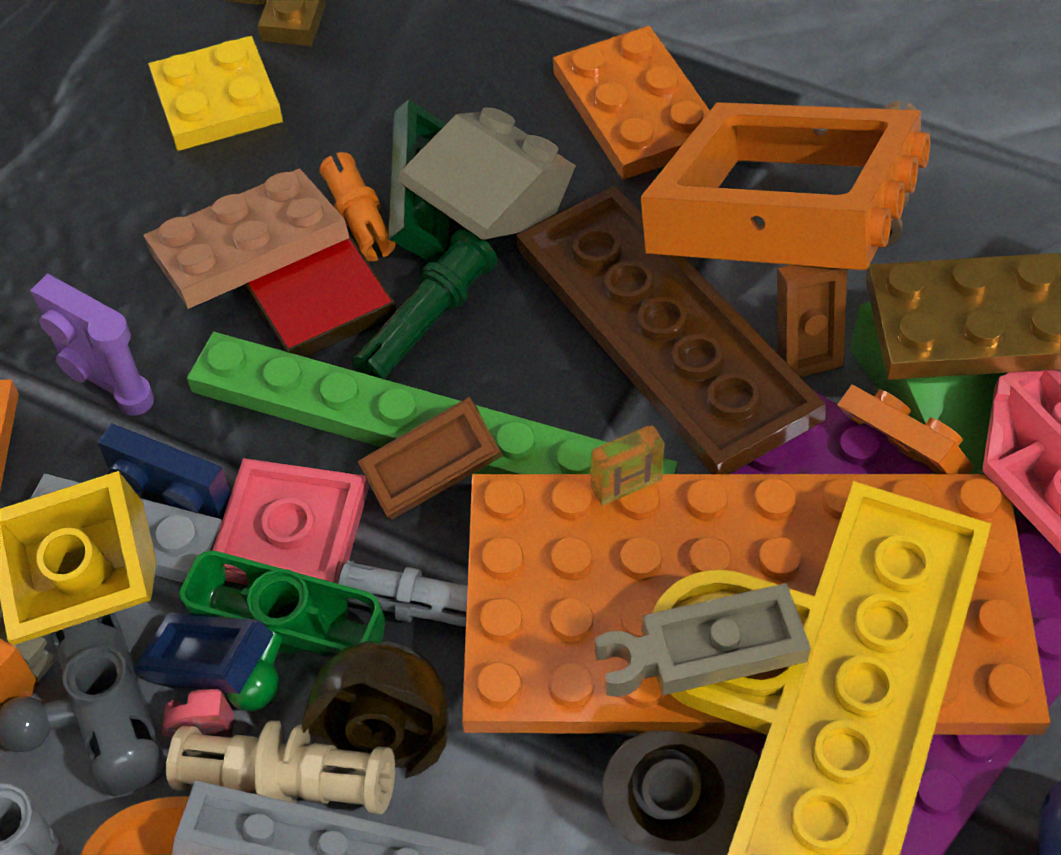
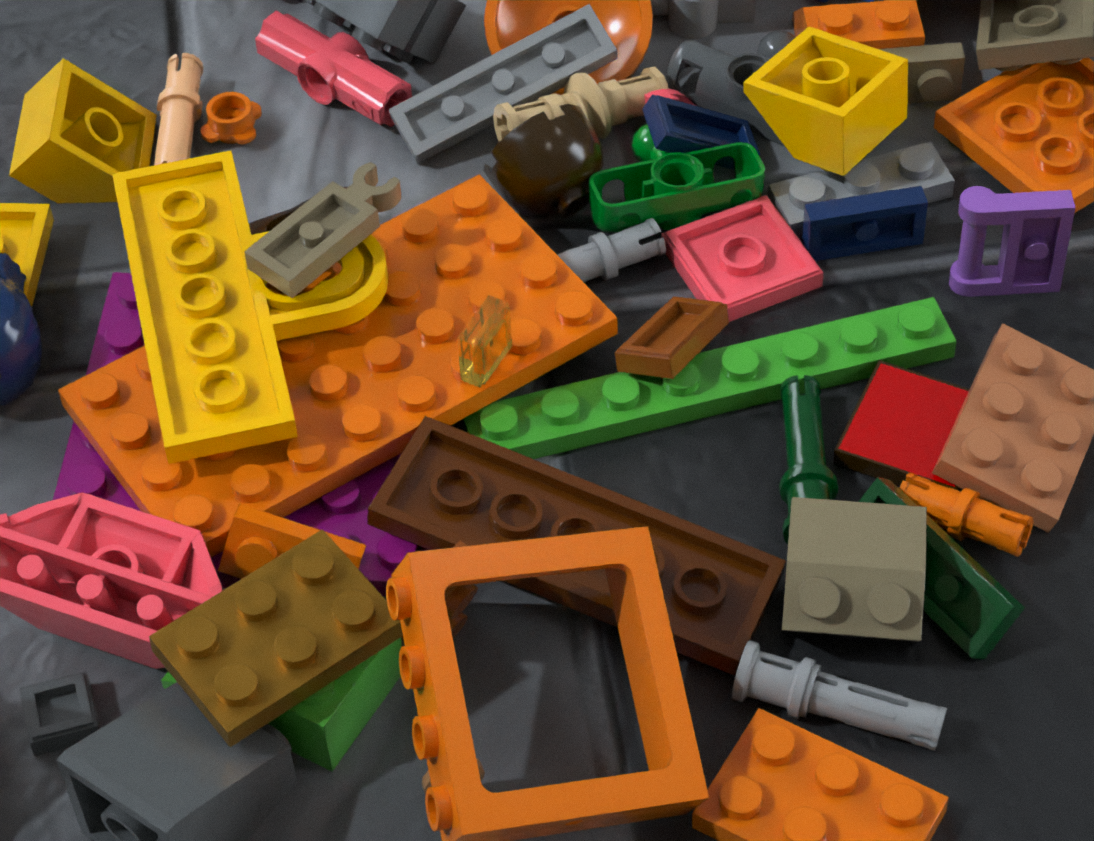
camera: 145 degrees right, 5 degrees down
(593, 168) = (806, 689): none -> light grey pin

